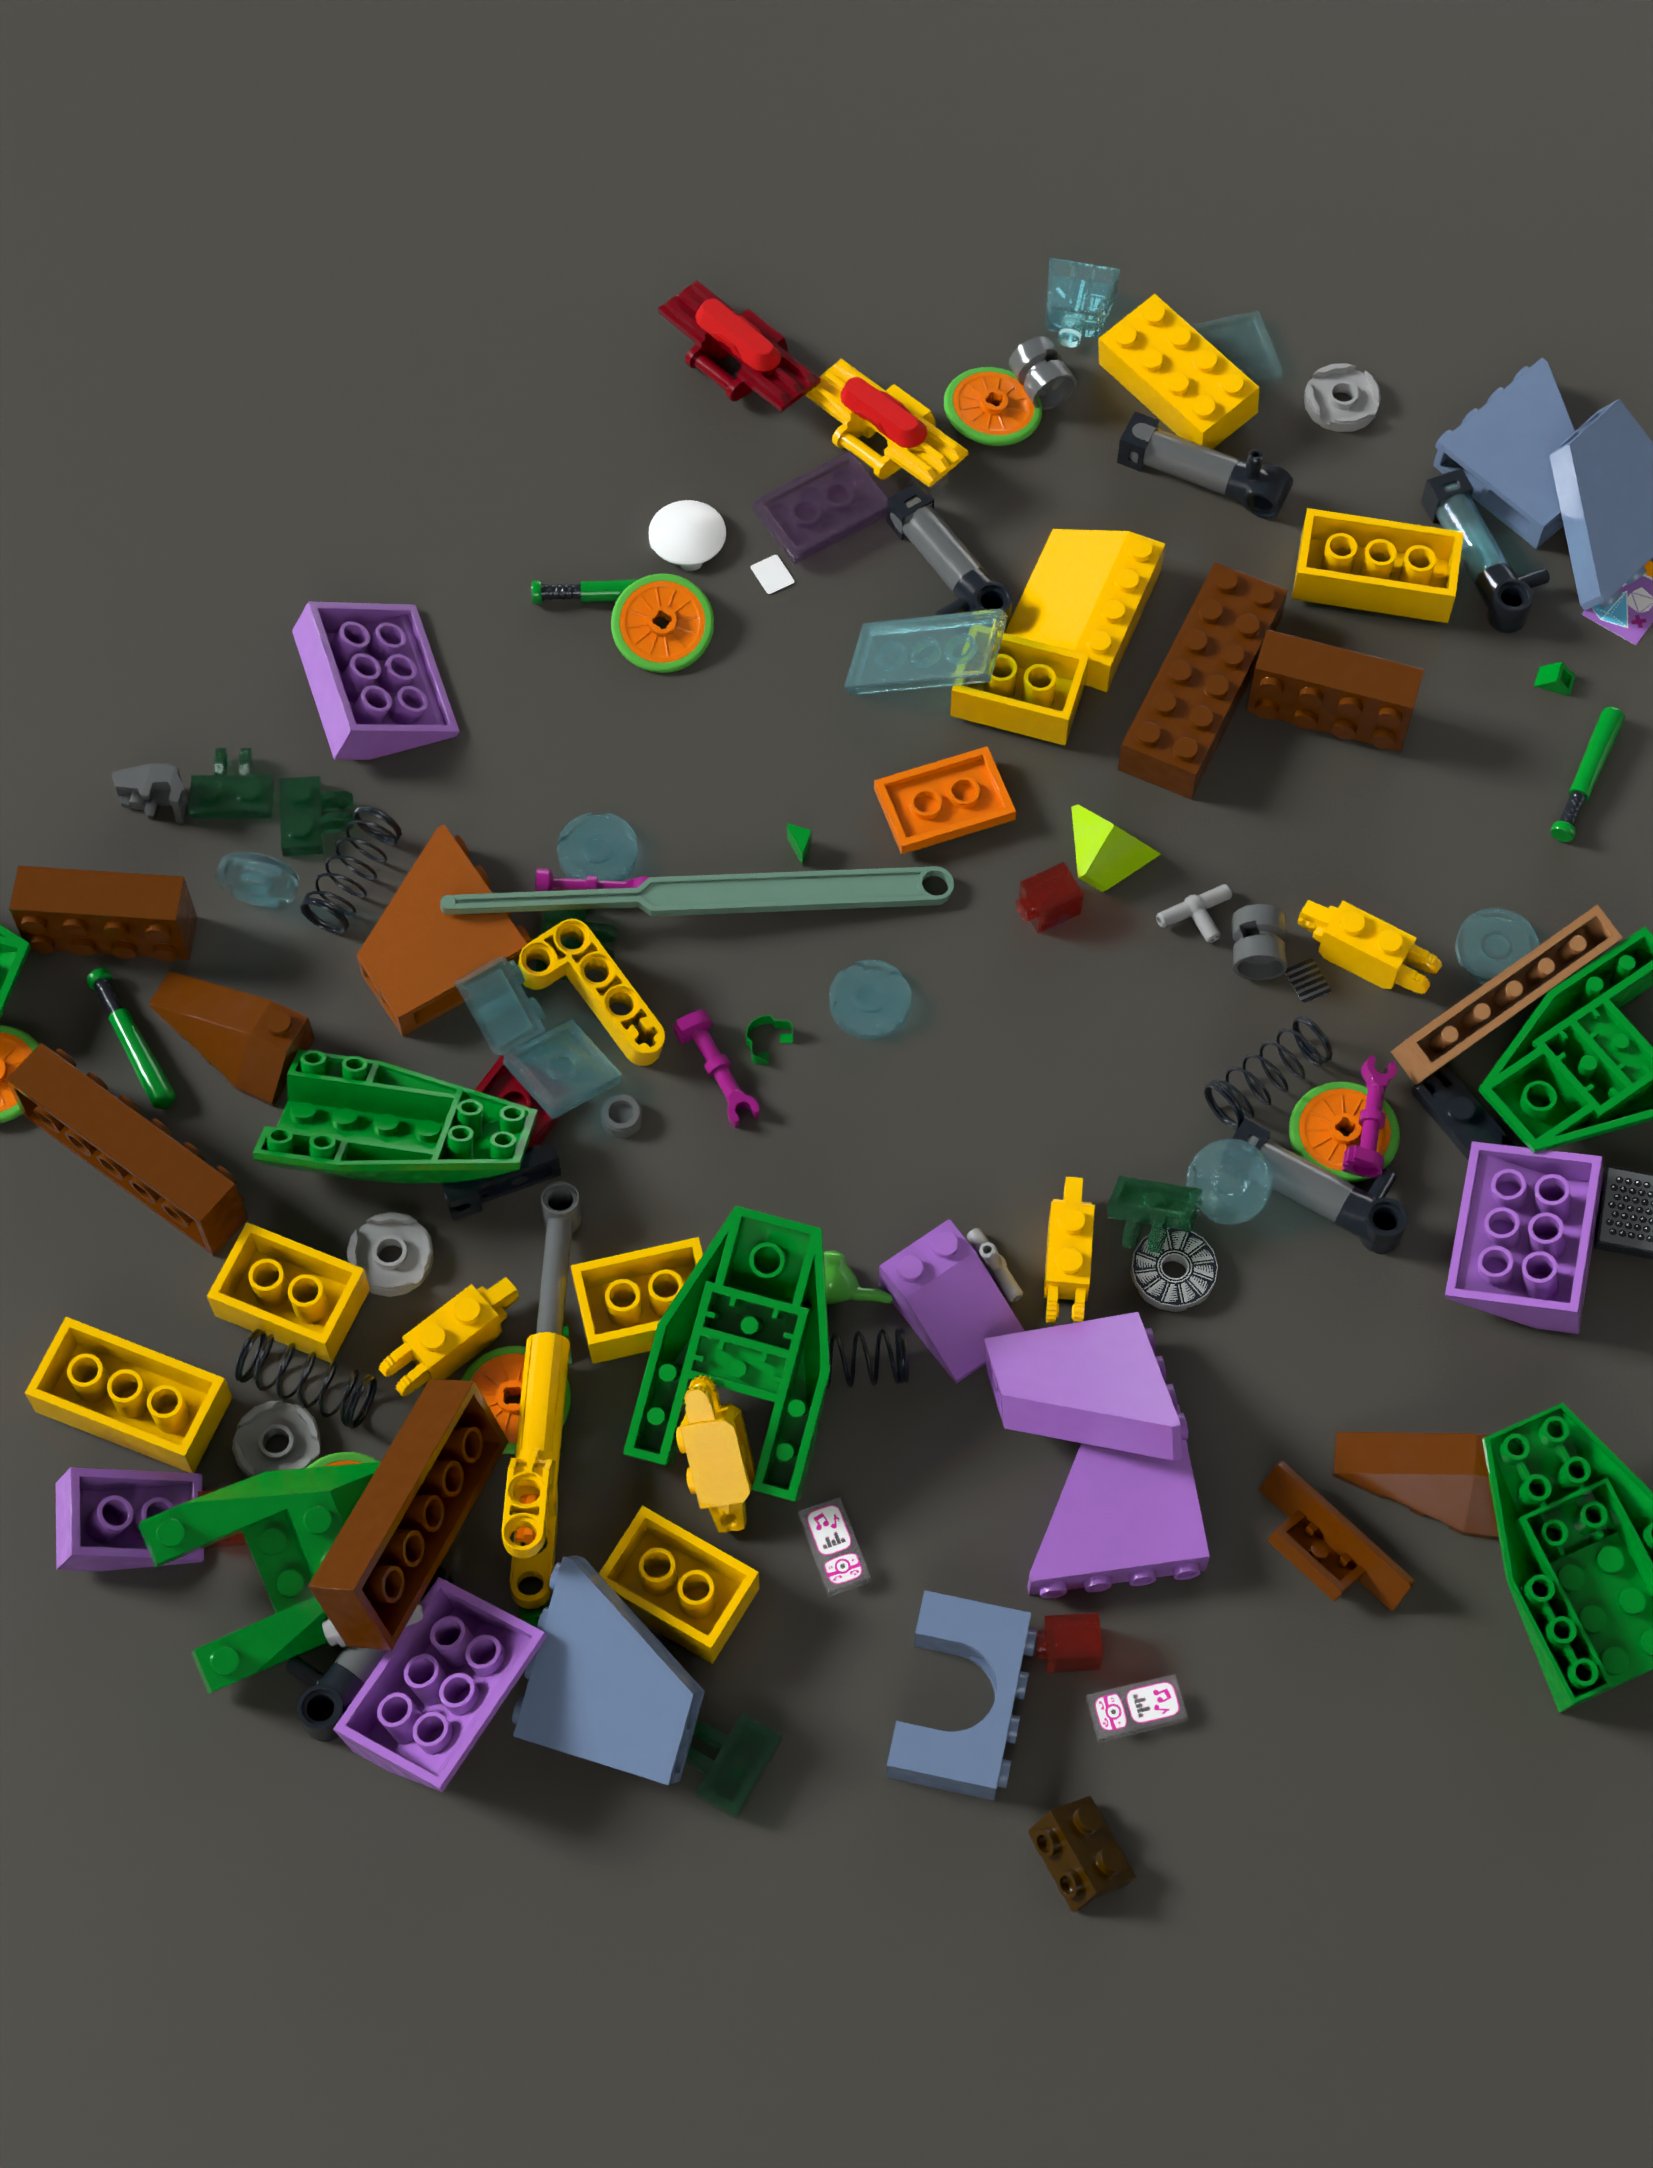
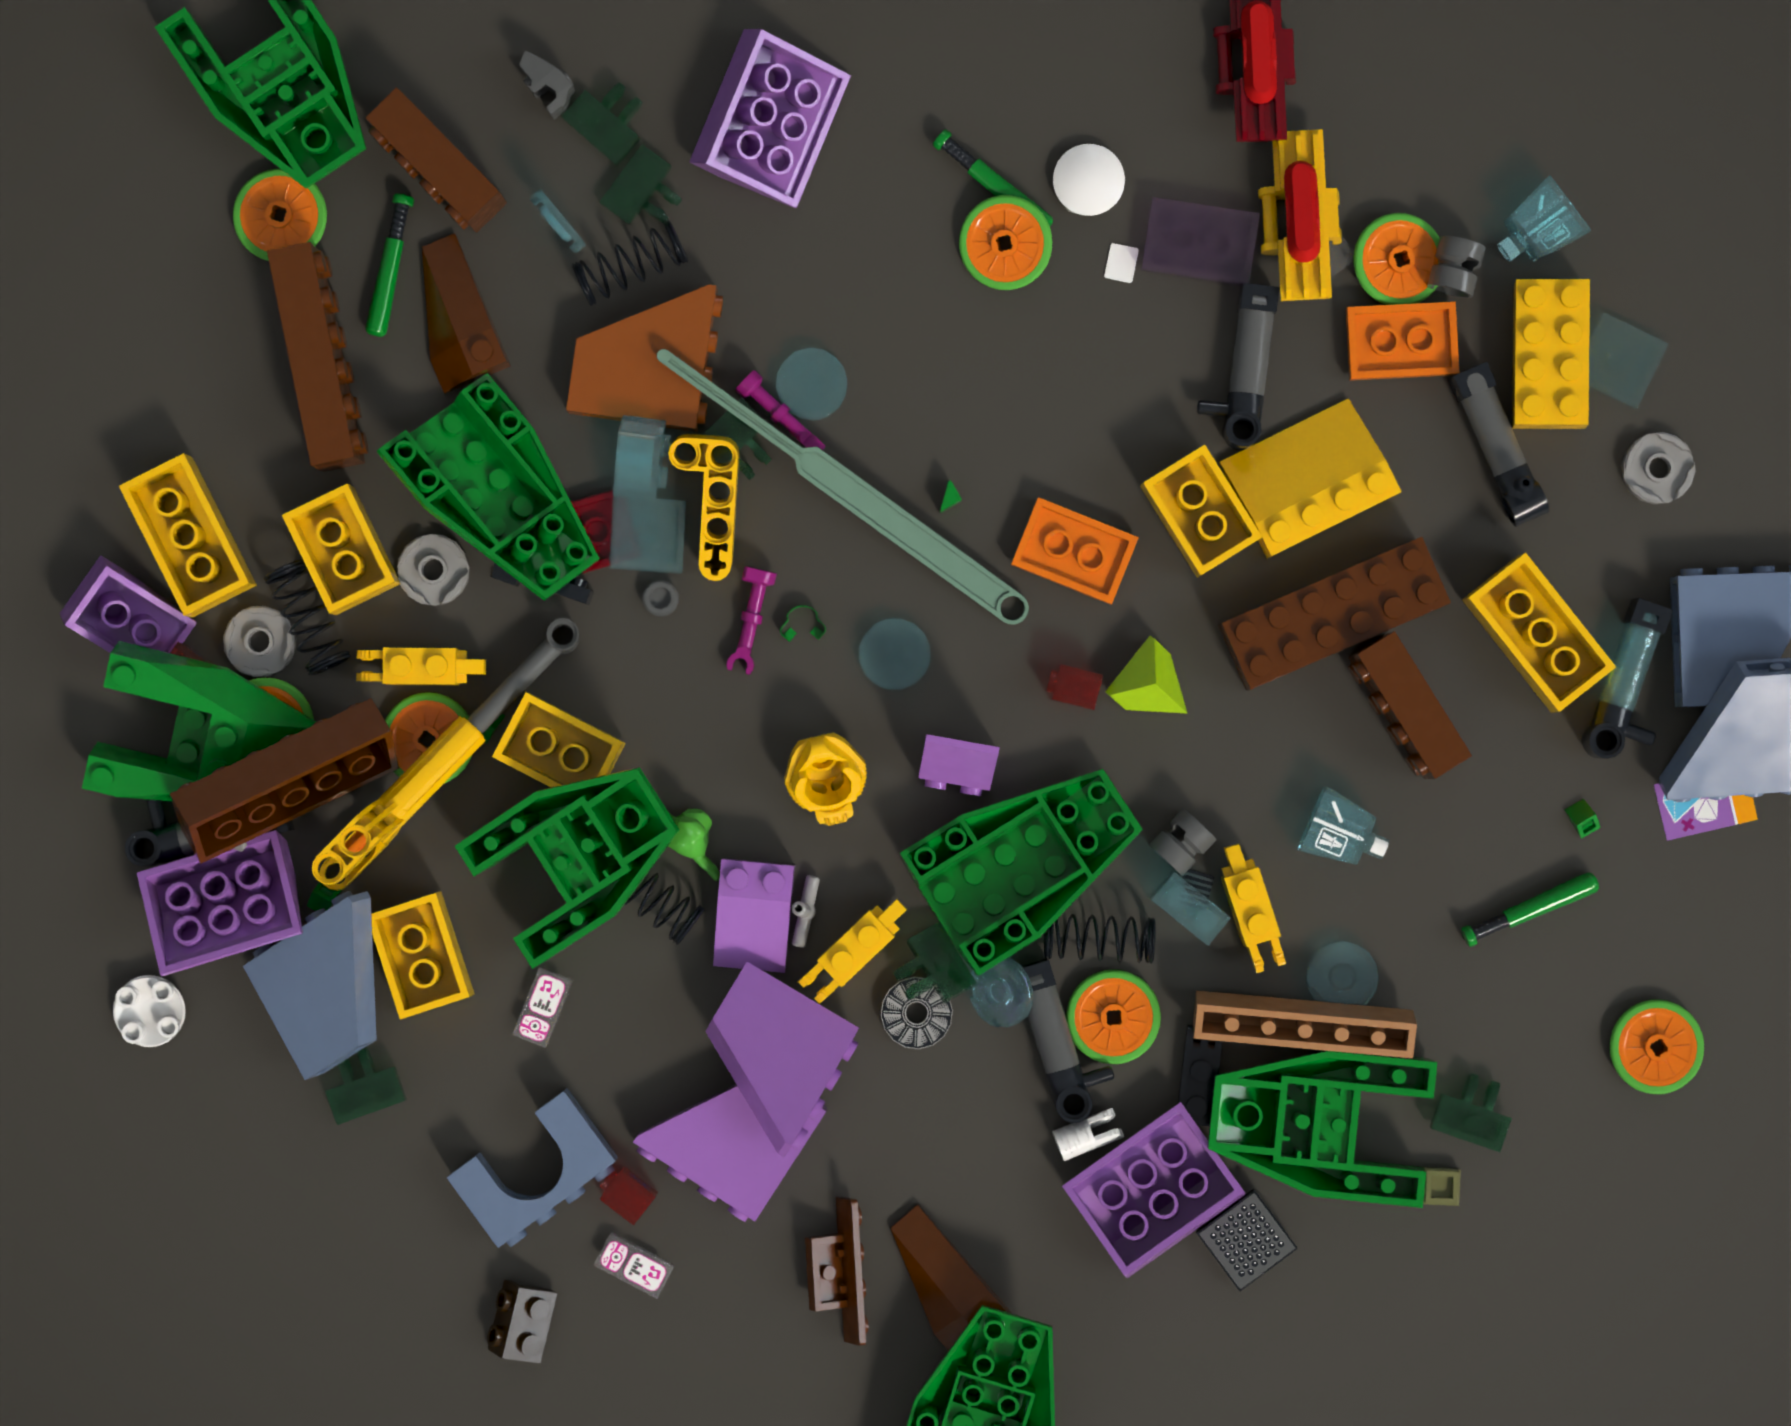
camera: 45 degrees right, 25 degrees up
(454, 1869) = (149, 1011): none -> white dish
(717, 1455) = (510, 897): yellow hinge -> none
(906, 1130) = (826, 777): none -> yellow helmet
(926, 652) = (1156, 434): clear light blue tile -> none
(1008, 1017) = (958, 763): none -> medium lavender slope
(1053, 456) = (1402, 341): none -> orange plate
(1140, 1068) = (1019, 864): none -> green wedge
(1195, 907) = (1169, 775): light grey piece -> none
(1318, 988) = (1189, 908): none -> clear light blue brick
(1364, 1159) = (1133, 1028): magenta piece -> none
(1376, 832) = (1341, 830): none -> clear light blue torso
(1420, 1247) = (1078, 1138): none -> white hinge

